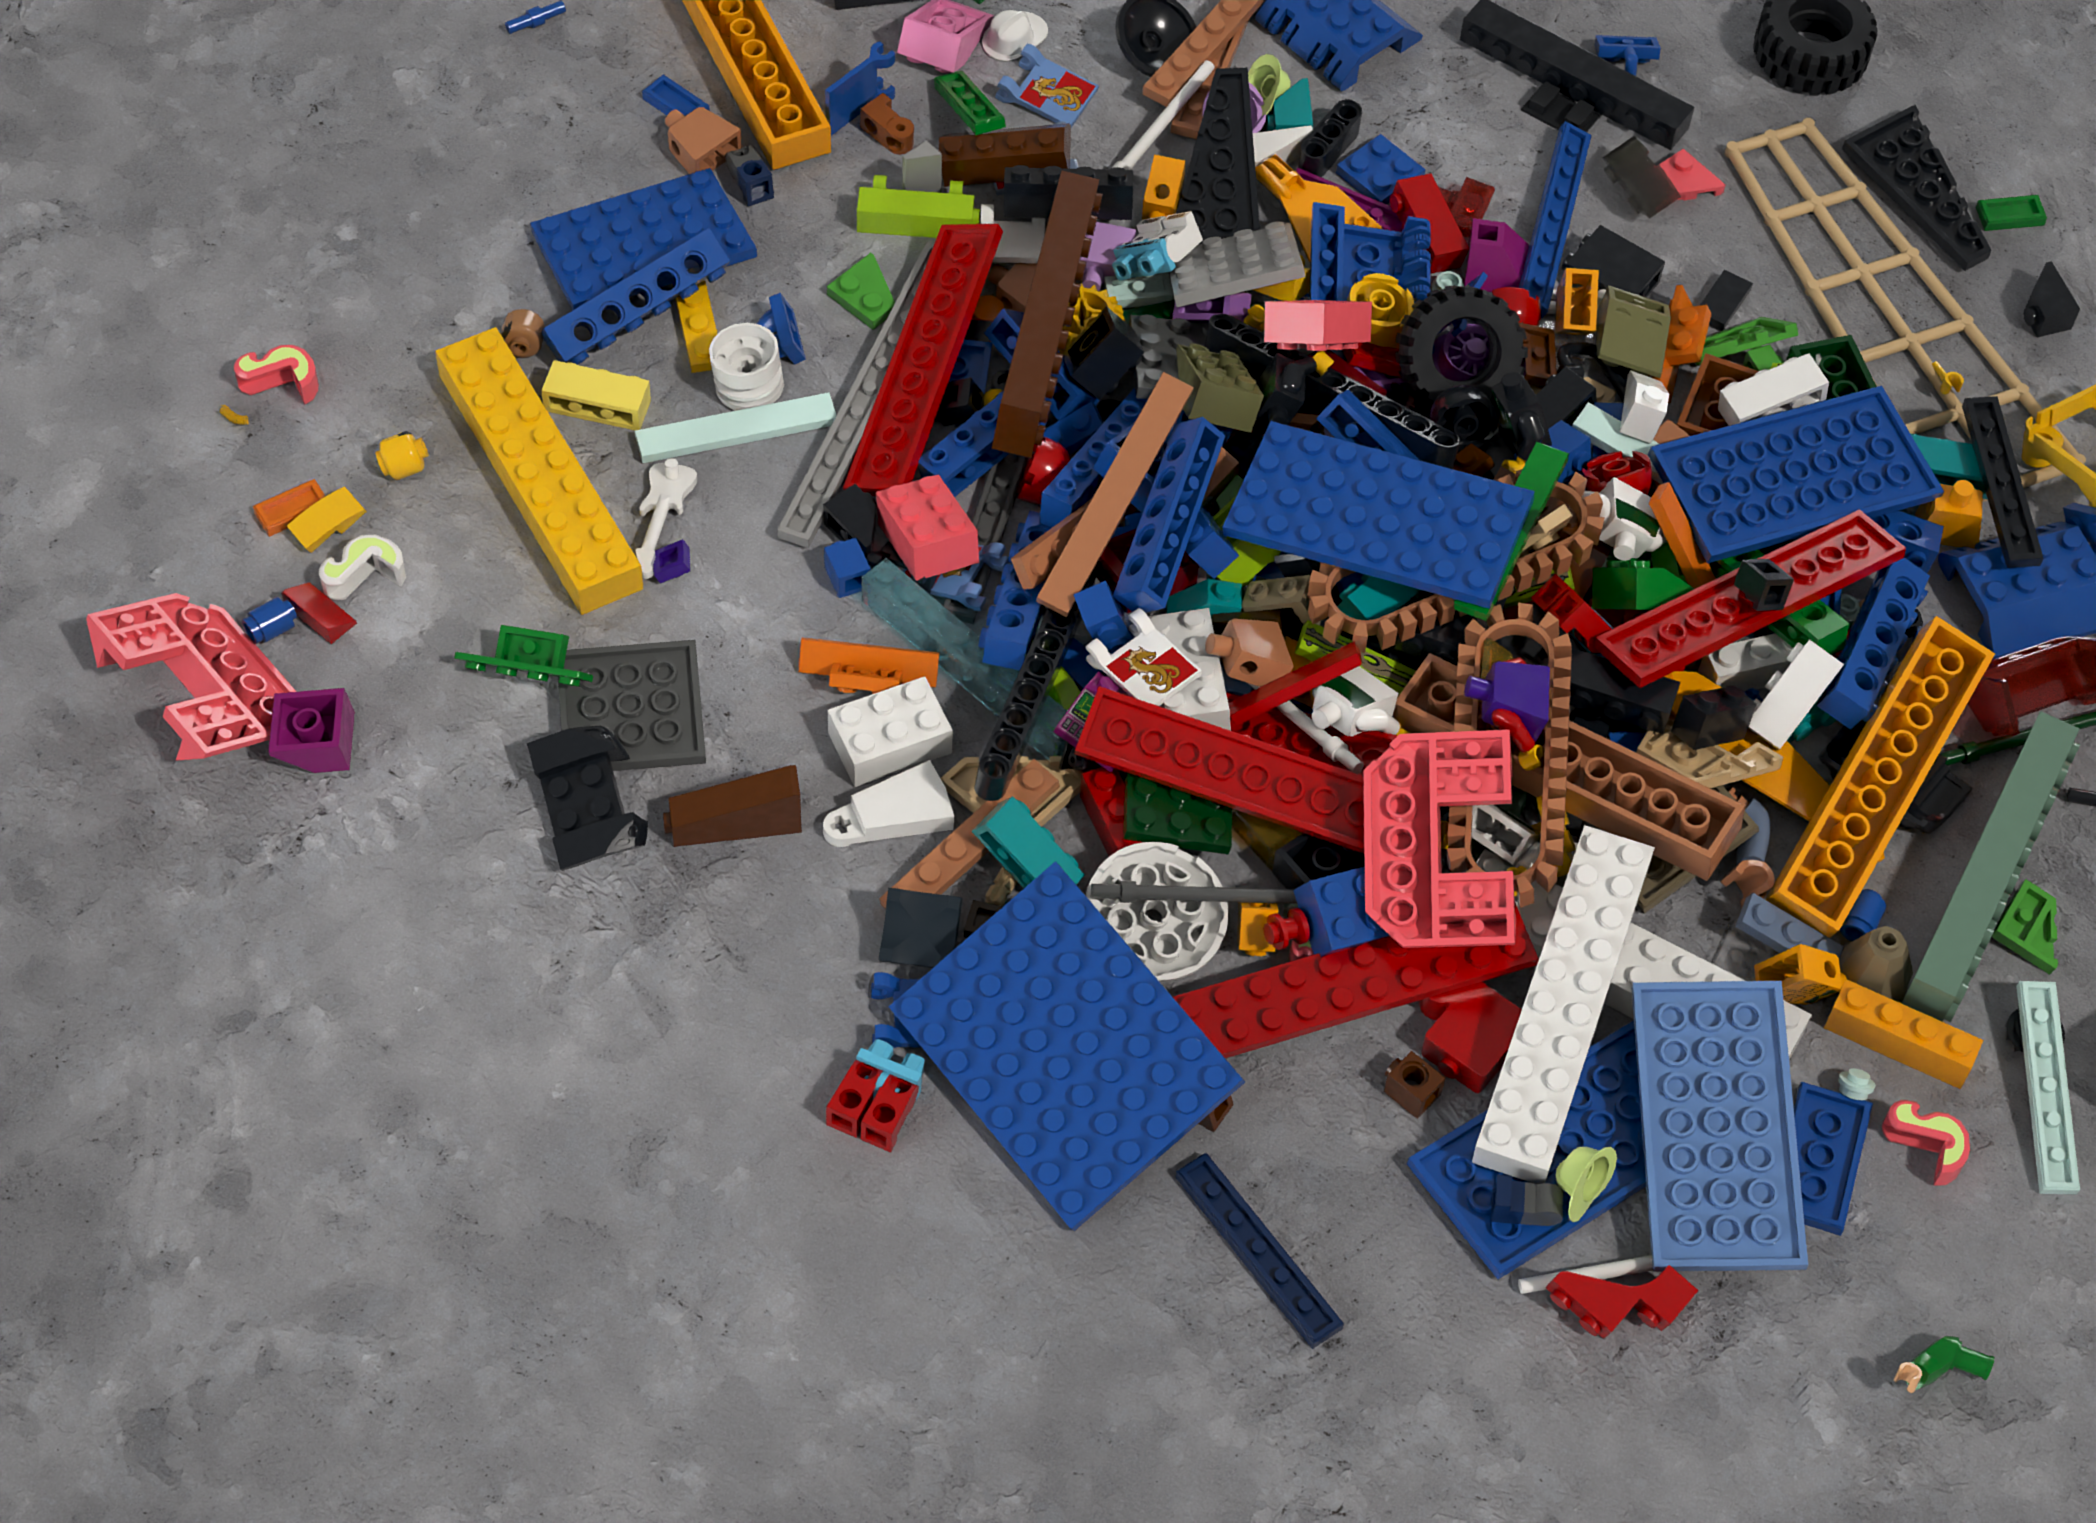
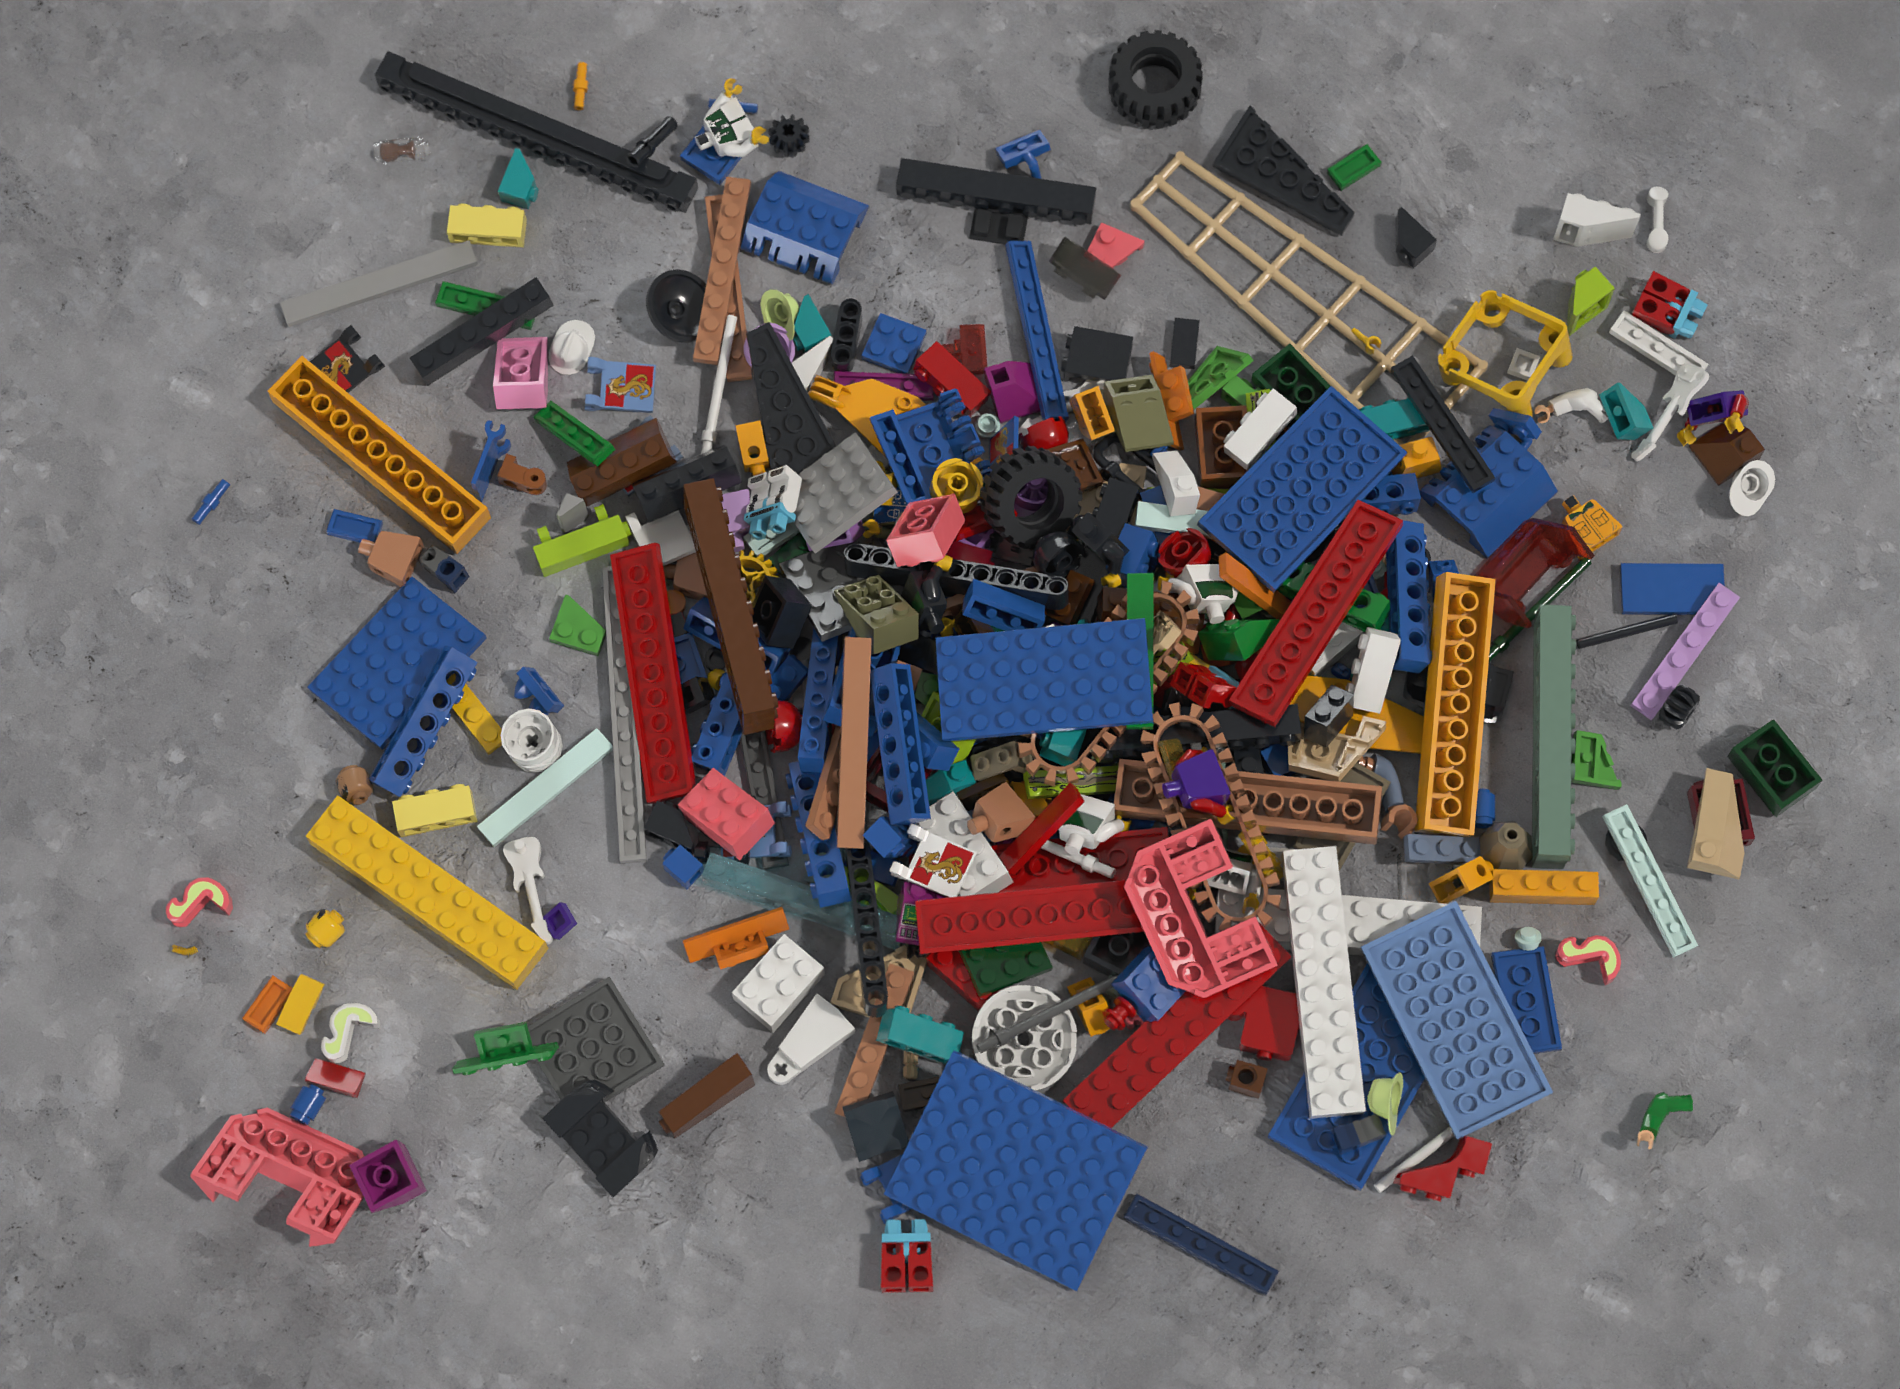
camera: 20 degrees left, 15 degrees up
(1763, 584) = (1323, 605): black brick -> none

